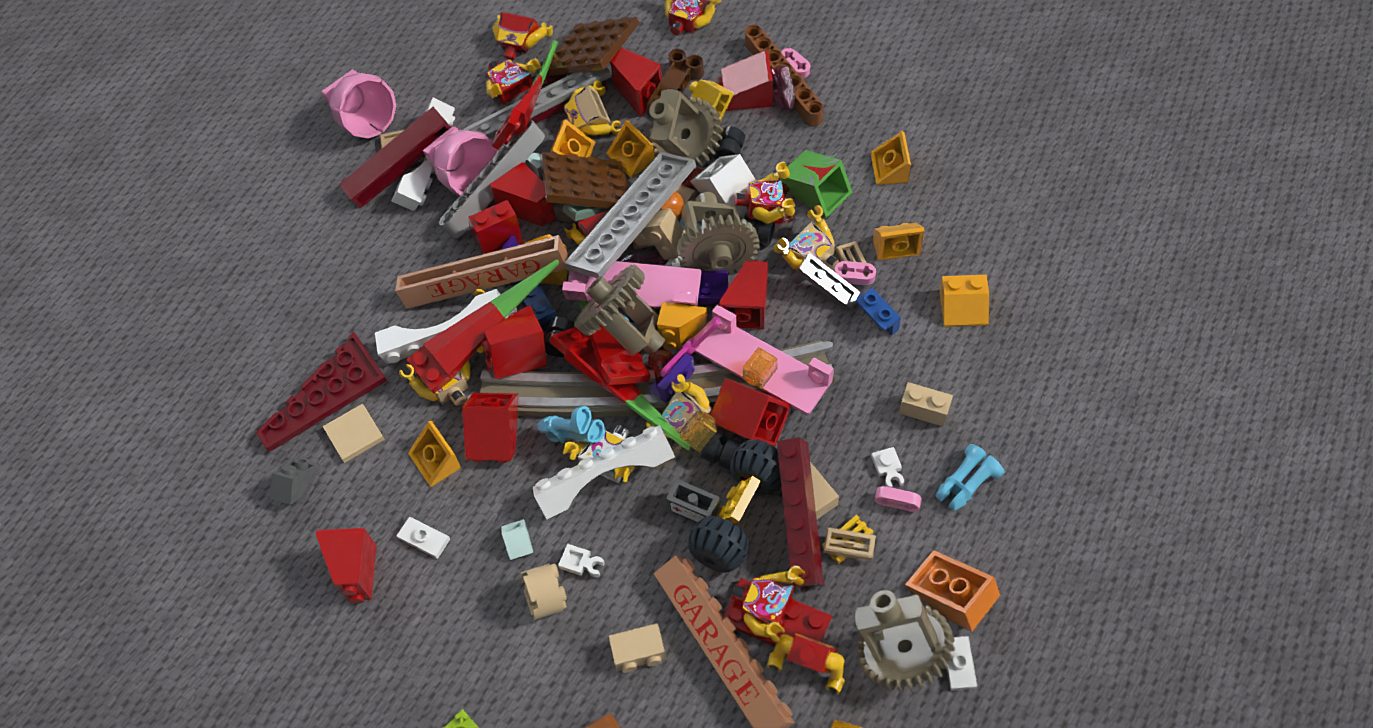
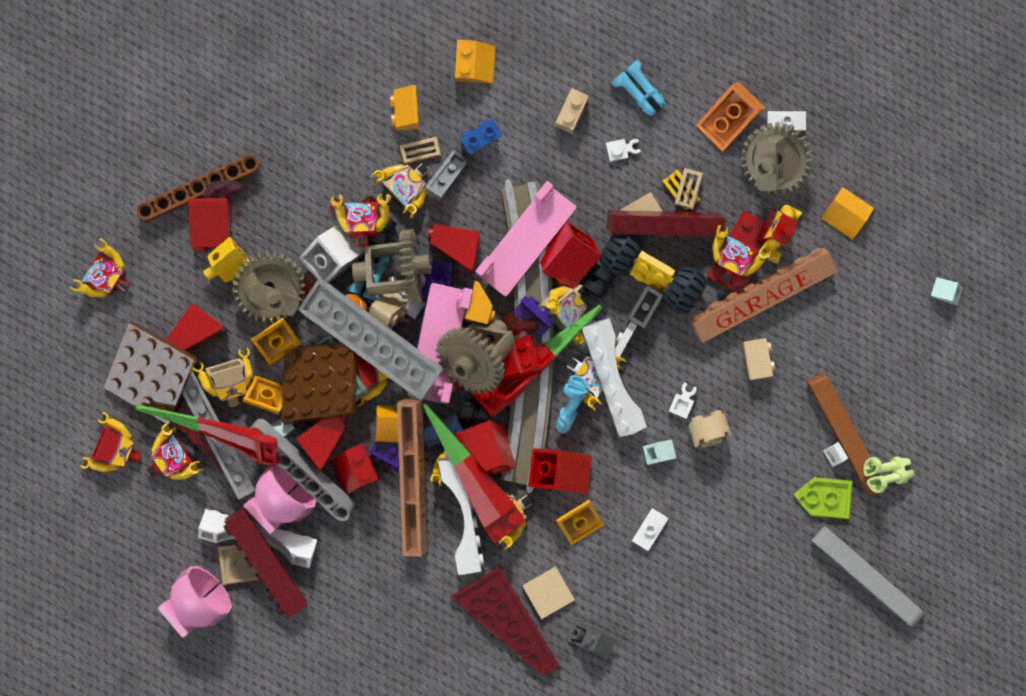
camera: 90 degrees left, 25 degrees up
(350, 561) = (673, 584): red slope -> none
(649, 484) = (623, 339): none -> white plate
(680, 73) = (195, 294): reddish brown piece -> none
(692, 344) = (510, 297): dark pink piece -> none
(698, 430) = (588, 297): clear yellow brick -> none
(731, 142) = (280, 245): black wheel -> none
(760, 368) = (536, 241): clear yellow brick -> none
(797, 61) = (179, 171): bright pink beam -> none
(818, 181) = (332, 172): bright green slope -> none
(855, 272) = (441, 152): bright pink beam -> none
(891, 161) = (316, 101): light orange slope -> none
(898, 499) = (652, 146): bright pink beam -> none

